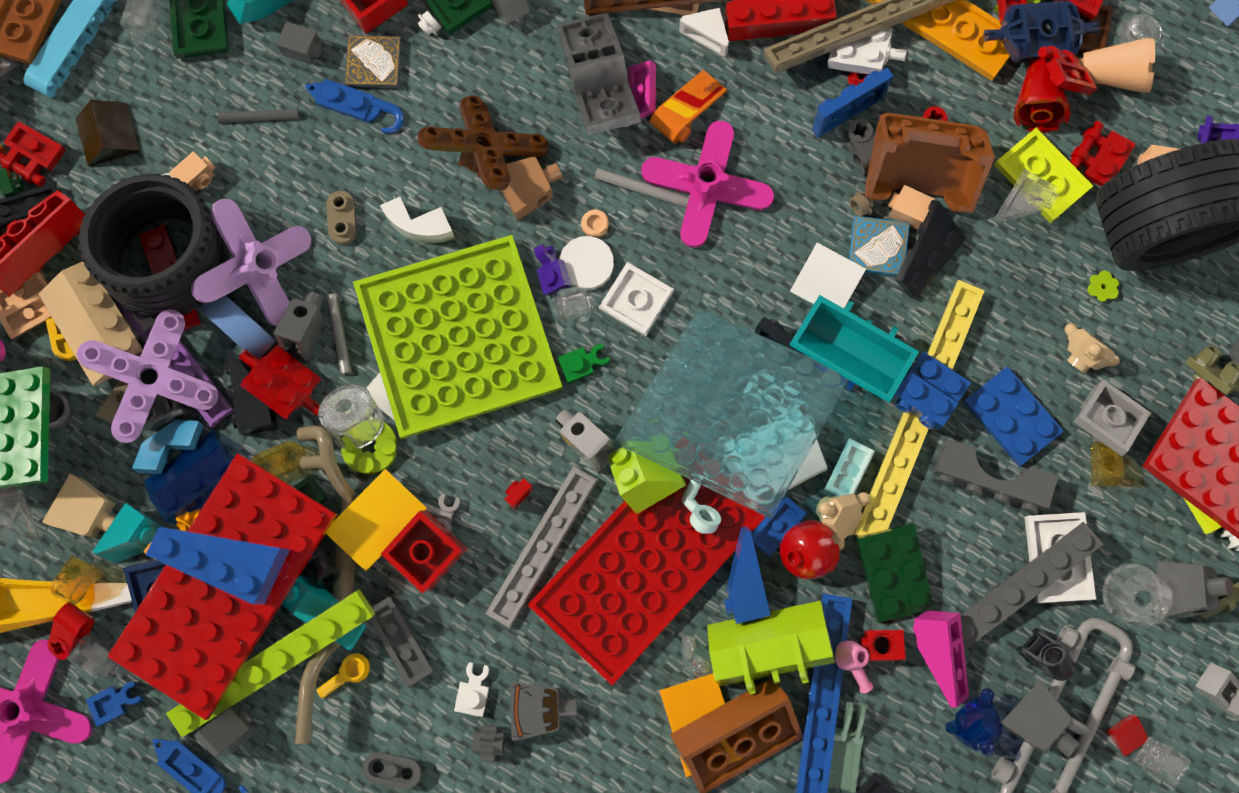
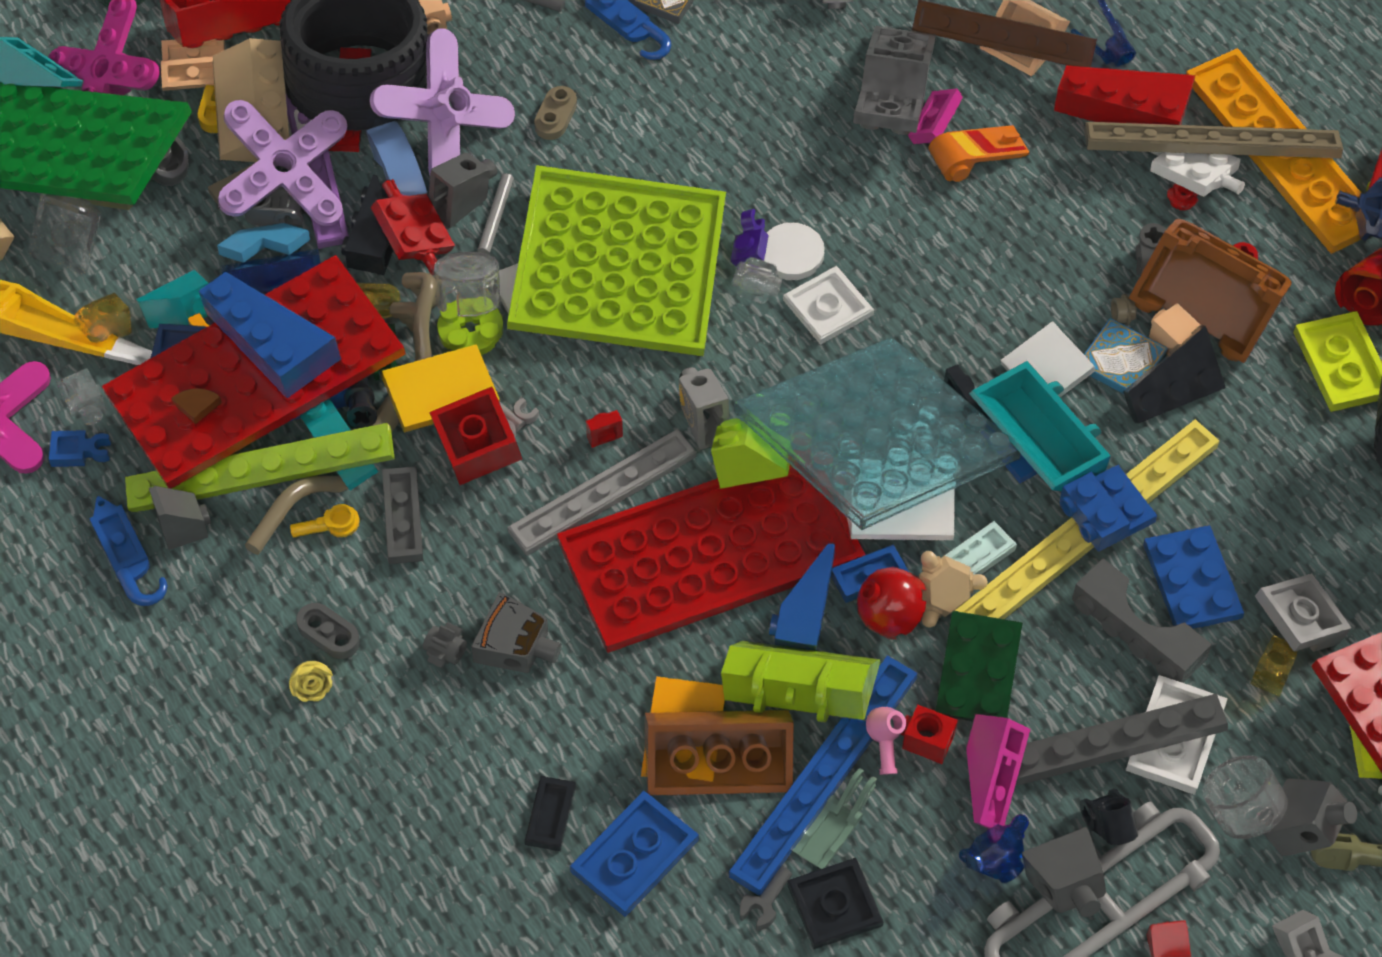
camera: 20 degrees right, 20 degrees down
(68, 629) = (74, 353): red piece -> none
(80, 508) = (142, 260): tan torso -> none
(193, 645) = (196, 403): none -> reddish brown tile
(426, 228) = (635, 151): white brick -> none
(472, 696) = (453, 599): white plate -> none
(480, 145) = (737, 93): reddish brown piece -> none
(529, 185) = (766, 153): medium nougat torso -> none
(579, 365) = (734, 339): green plate -> none
(595, 223) = (821, 218): light nougat tile -> none
(641, 187) = (893, 209): light grey bar -> none
(692, 660) = (707, 661): clear arm -> none
(703, 517) = (789, 522): light aqua plate -> none
(704, 195) = (961, 225): dark pink piece -> none
(706, 29) = (1033, 86): white slope -> none
(851, 101) = (1156, 203): blue plate -> none
(1027, 198) = (1304, 362): clear slope -> none
(1088, 350) = (1312, 546): tan rock -> none
(1105, 279) = (1367, 489): lime plant -> none

